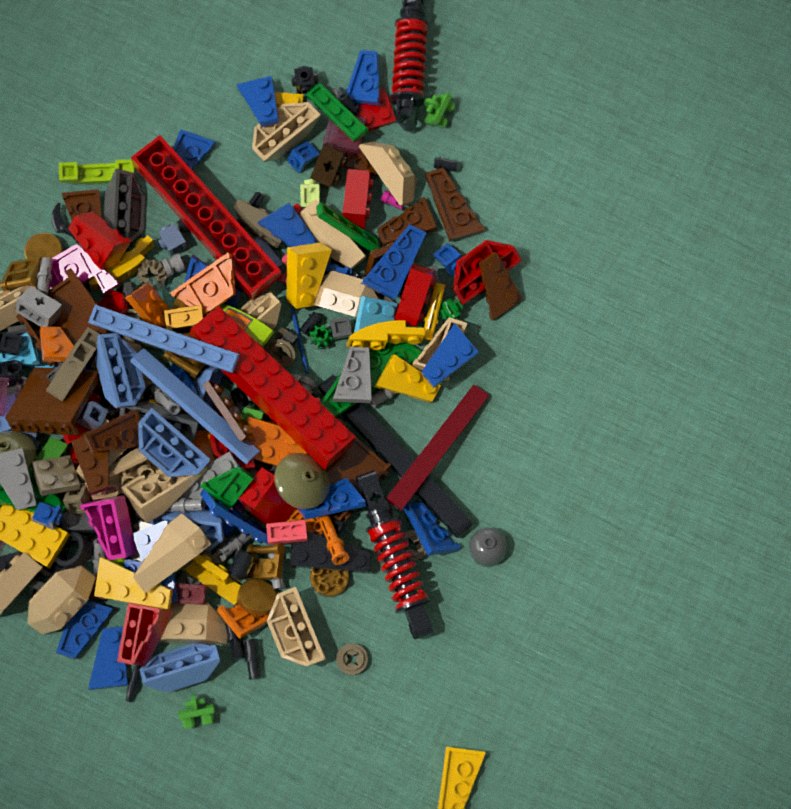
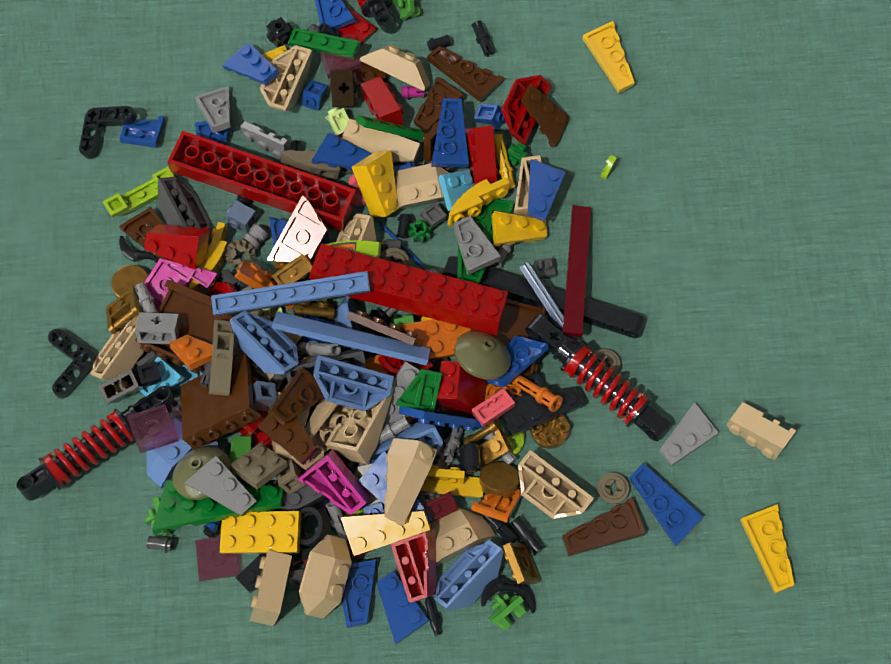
camera: 30 degrees left, 5 degrees down
(48, 515) = (272, 505): blue bracket -> none
(98, 84) = (100, 121): none -> black beam
(131, 114) = (143, 132): none -> blue wing
(206, 125) = (215, 108): none -> light grey wing
(220, 700) = (498, 585): none -> black piece
(231, 680) = (521, 563): none -> pearl gold plate
(232, 181) = (264, 142): none -> light grey wing
(292, 574) = (516, 443): none -> lime tile
(327, 692) = (607, 529): none -> reddish brown wing
(389, 702) = (666, 505): none -> blue wing
(392, 462) = (545, 297): none -> sand blue axle
(413, 429) = (545, 268): none -> dark grey tile
(428, 531) = (617, 346): blue wing -> none
(447, 649) = (688, 436): none -> light grey wing
(488, 180) = (483, 38): none -> black pin
(488, 547) = (668, 331): dark grey cylinder -> none
(510, 680) = (759, 431): none -> tan wedge
(532, 364) = (611, 161): none -> lime tile
(597, 254) = (610, 56): none -> yellow wing

